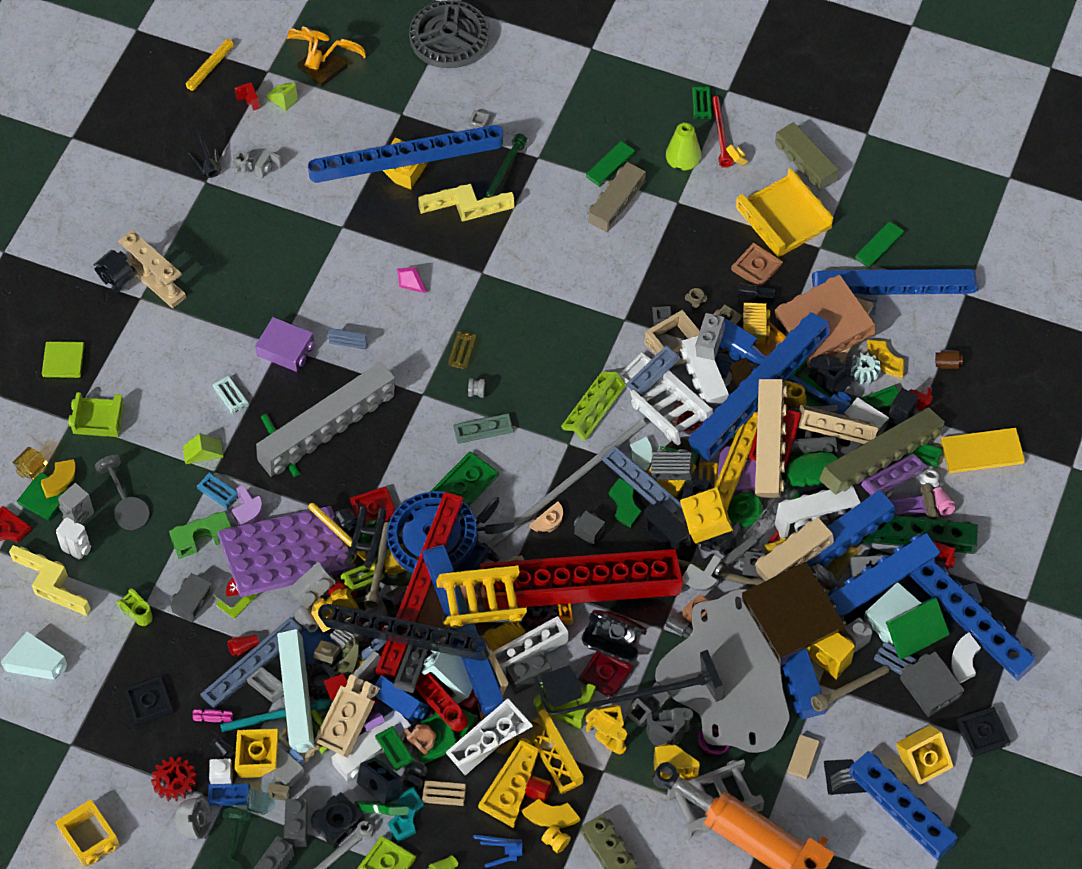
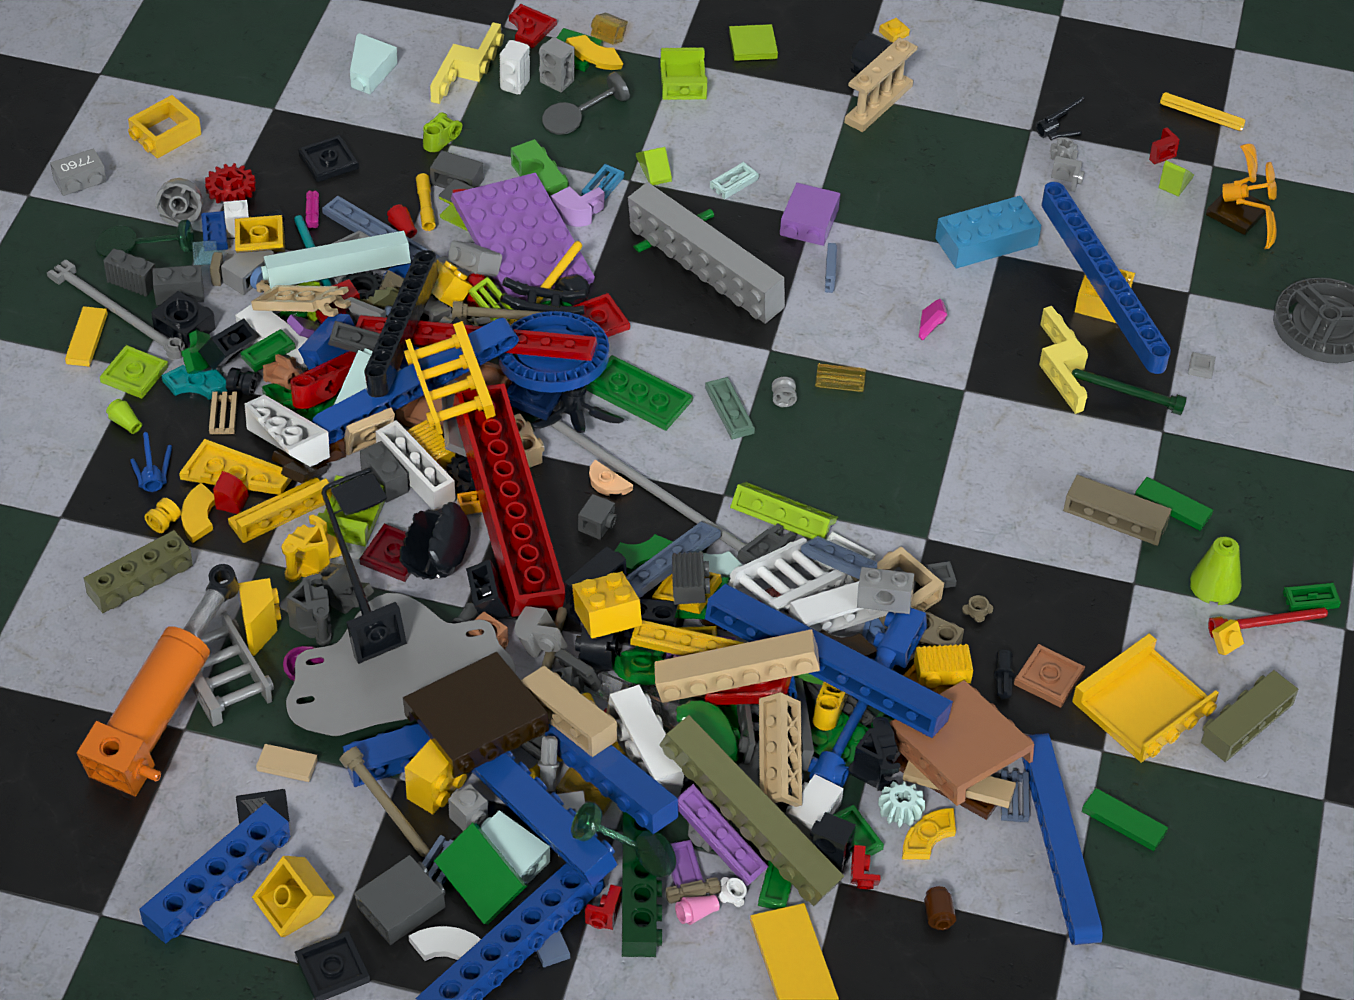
camera: 80 degrees right, 10 degrees down
(69, 255) = (894, 29): none -> yellow plate
(232, 625) = (424, 192): none -> yellow piece
(326, 227) = (988, 231): none -> dark azure brick
(633, 418) = (765, 543): none -> dark grey hinge
(661, 605) = (487, 590): none -> black brick
(907, 541) = (652, 850): none -> clear green piece

